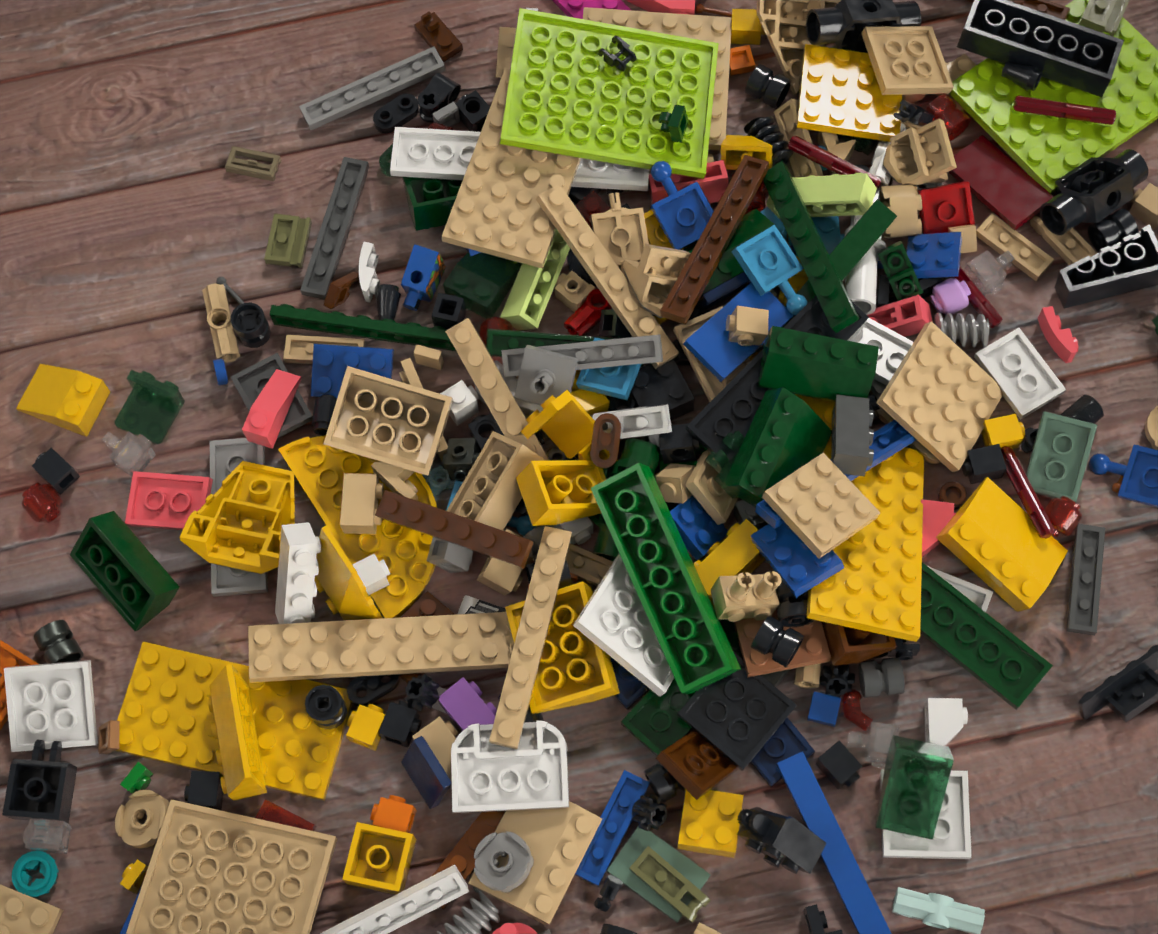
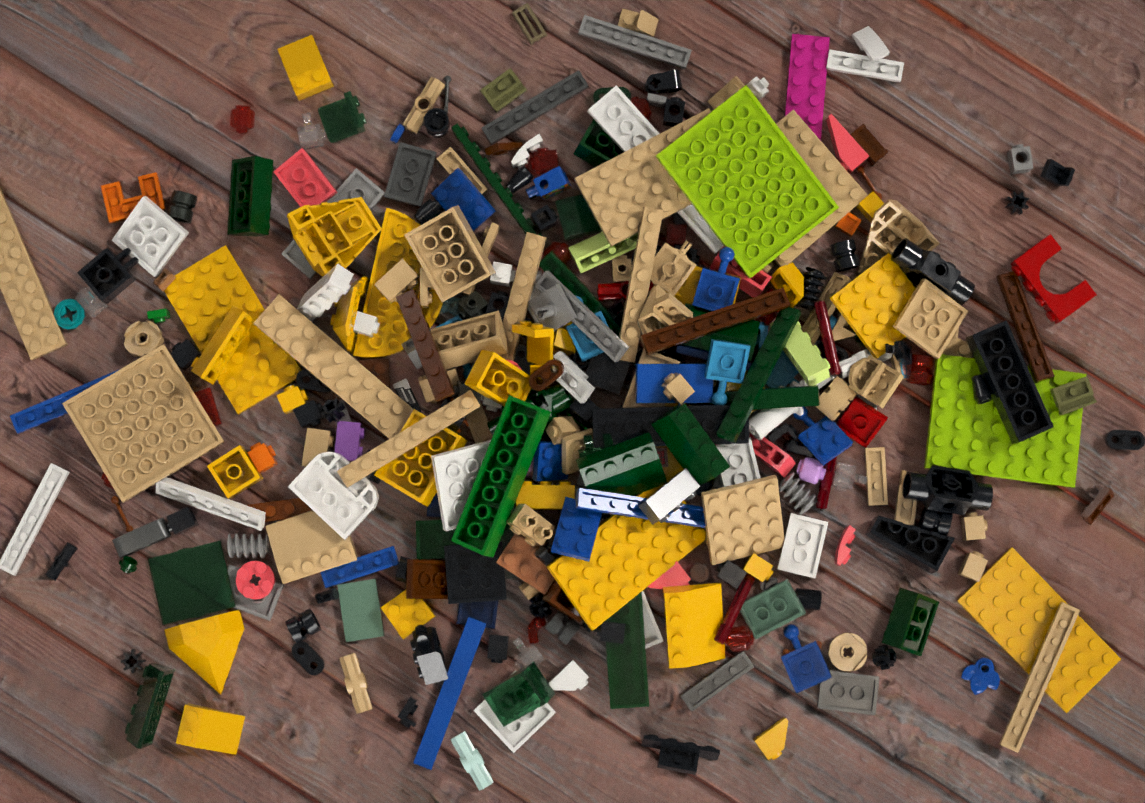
camera: 35 degrees right, 15 degrees up
(55, 470) = (264, 106): black brick -> none
(134, 876) = (114, 363): yellow plate -> none
(271, 408) = (403, 182): coral slope -> none
(326, 707) = (279, 372): black wheel -> none
(362, 65) = (638, 22): none -> tan slope
(393, 263) = (544, 160): none -> clear red brick
(397, 113) = (633, 71): black plate -> none
(426, 772) = (297, 452): dark blue tile -> none
(428, 357) = (511, 232): tan tile -> none
(438, 35) = (702, 44): reddish brown plate -> none
(518, 866) = (281, 526): light grey plate -> none
(613, 60) = (765, 164): black piece -> none
(649, 812) = (383, 578): black gear -> none
(668, 883) = (358, 621): olive plate -> none
(674, 123) = (760, 235): dark green tile -> none
(779, 642) = (522, 562): black wheel -> none
(821, 505) = (610, 519): tan plate -> none
(824, 709) = (520, 613): blue tile -> none
(900, 271) = (795, 433): dark green slope -> none
(938, 625) = (611, 632): none -> black brick
(969, 239) = (857, 446): tan tile -> none
(999, 182) = (907, 433): dark red tile -> none
(1064, 110) = (981, 431): dark red axle -> none

